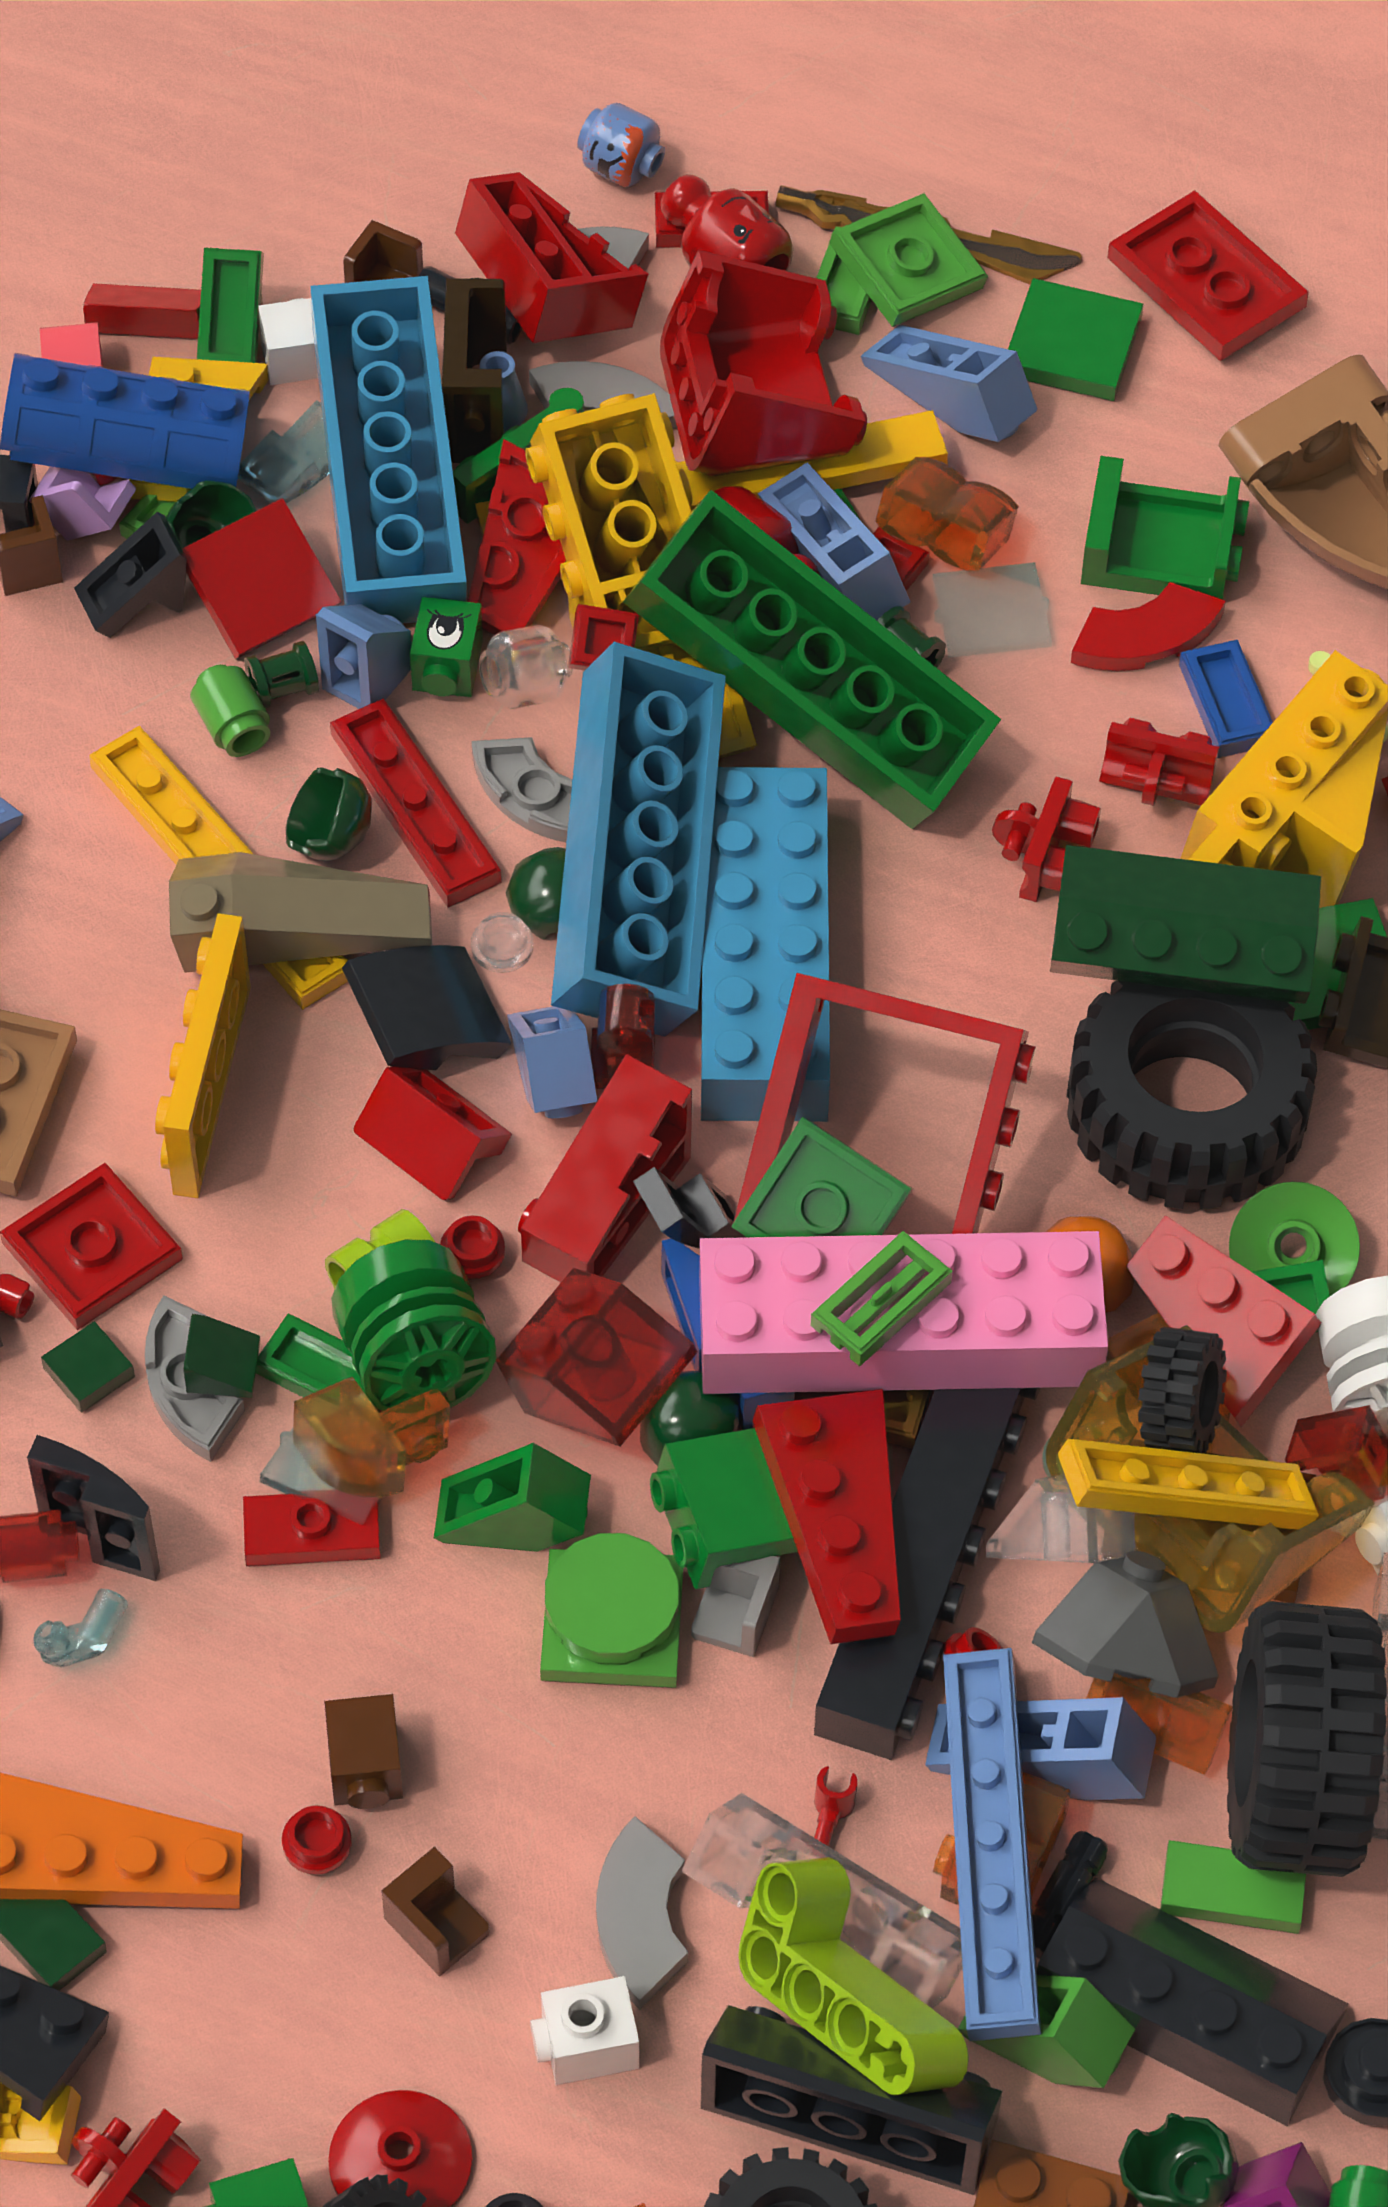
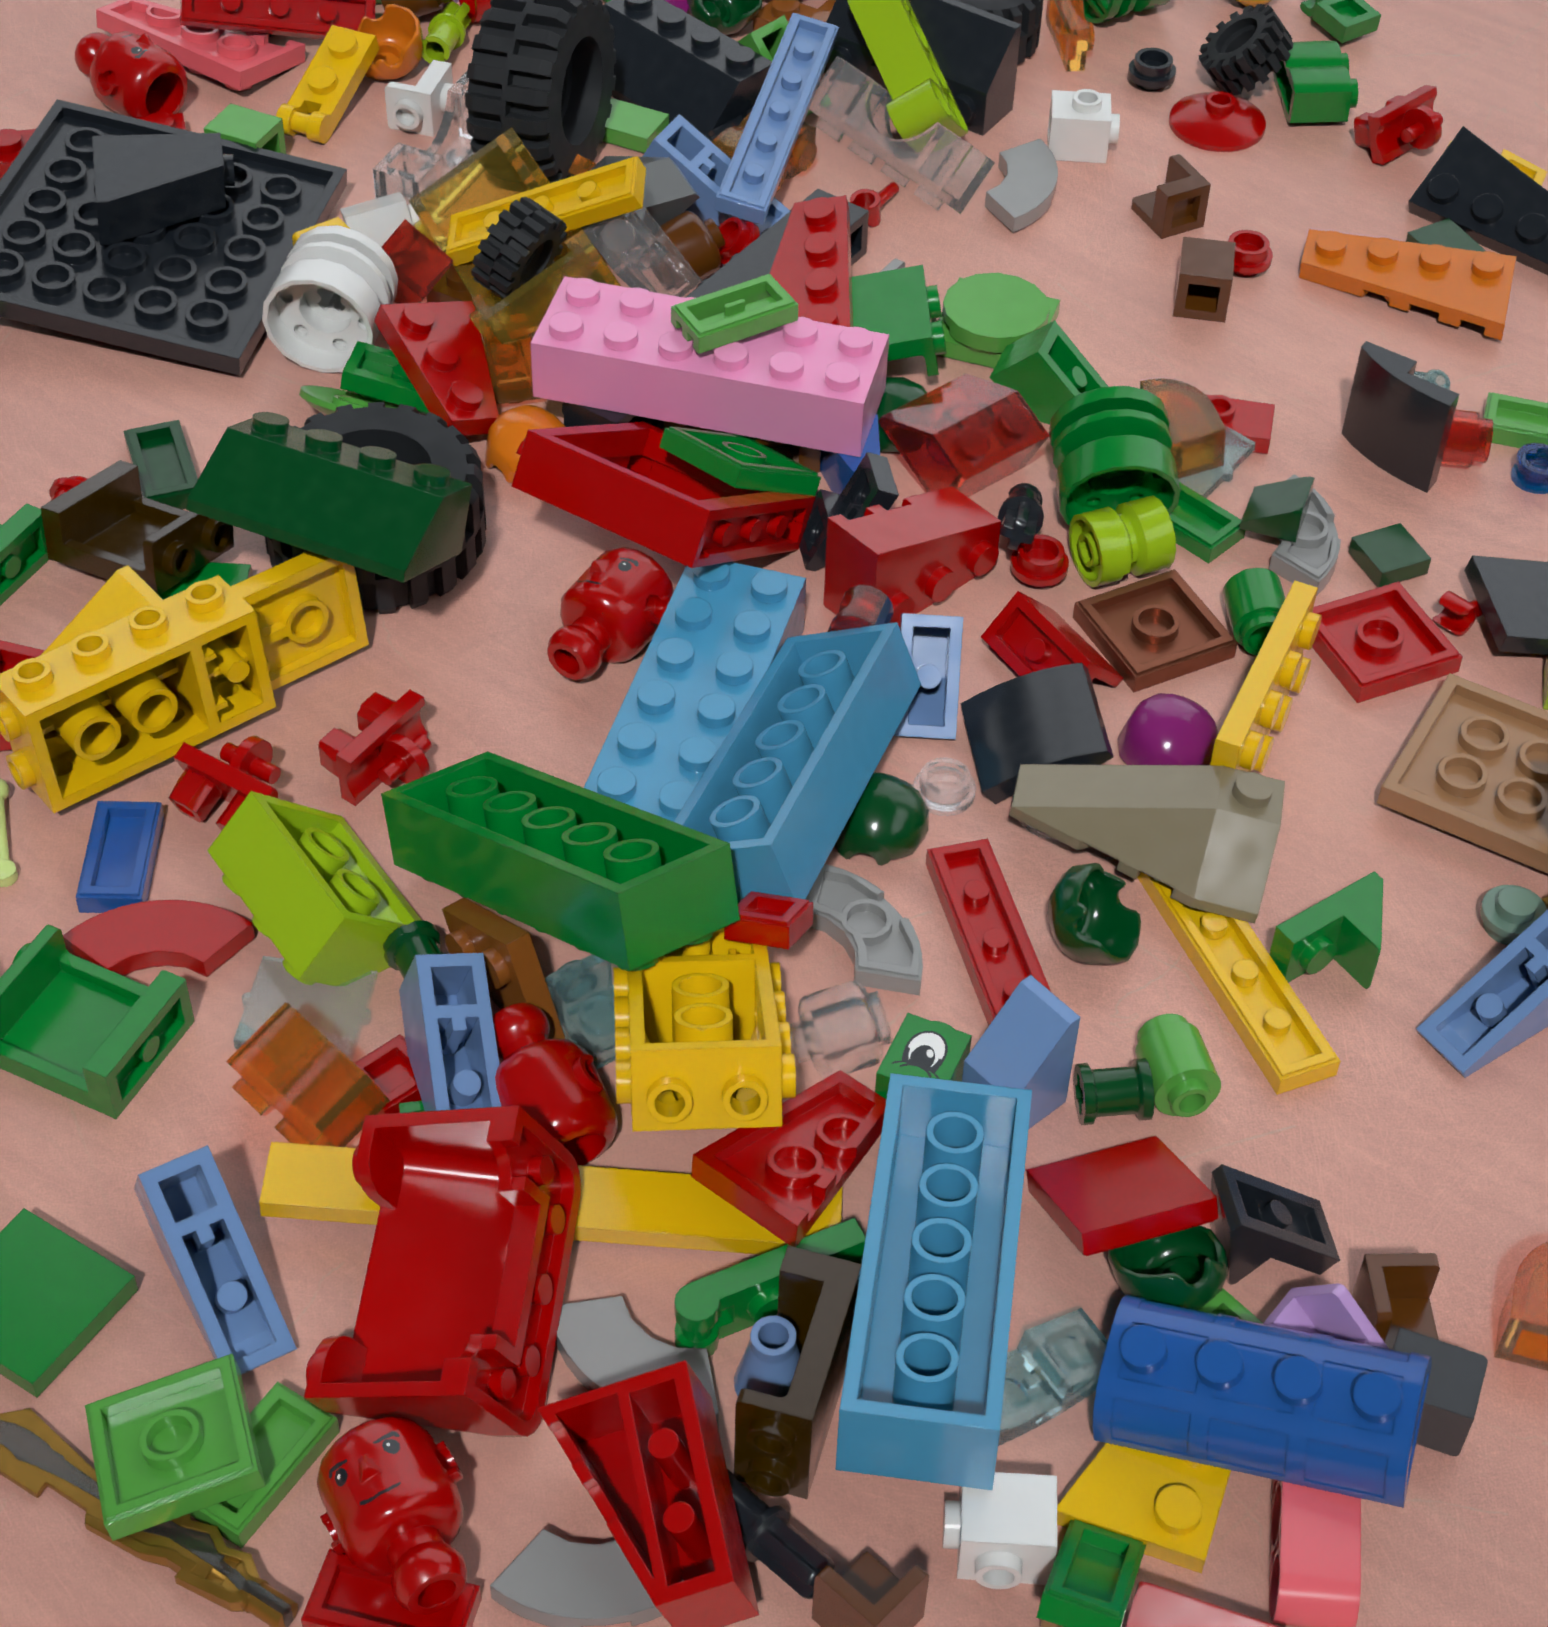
camera: 165 degrees left, 10 degrees down
(104, 871) = (1337, 928): none -> green slope
(224, 1224) = (1252, 605): none -> green brick
(294, 1054) = (1168, 732): none -> magenta hair
(328, 1194) = (1154, 630): none -> copper tile
(503, 1269) = (1021, 515): none -> black axle
(887, 1057) = (609, 612): none -> red piece
(1019, 1603) = (696, 241): none -> reddish brown head
(1037, 679) = (310, 888): none -> lime slope

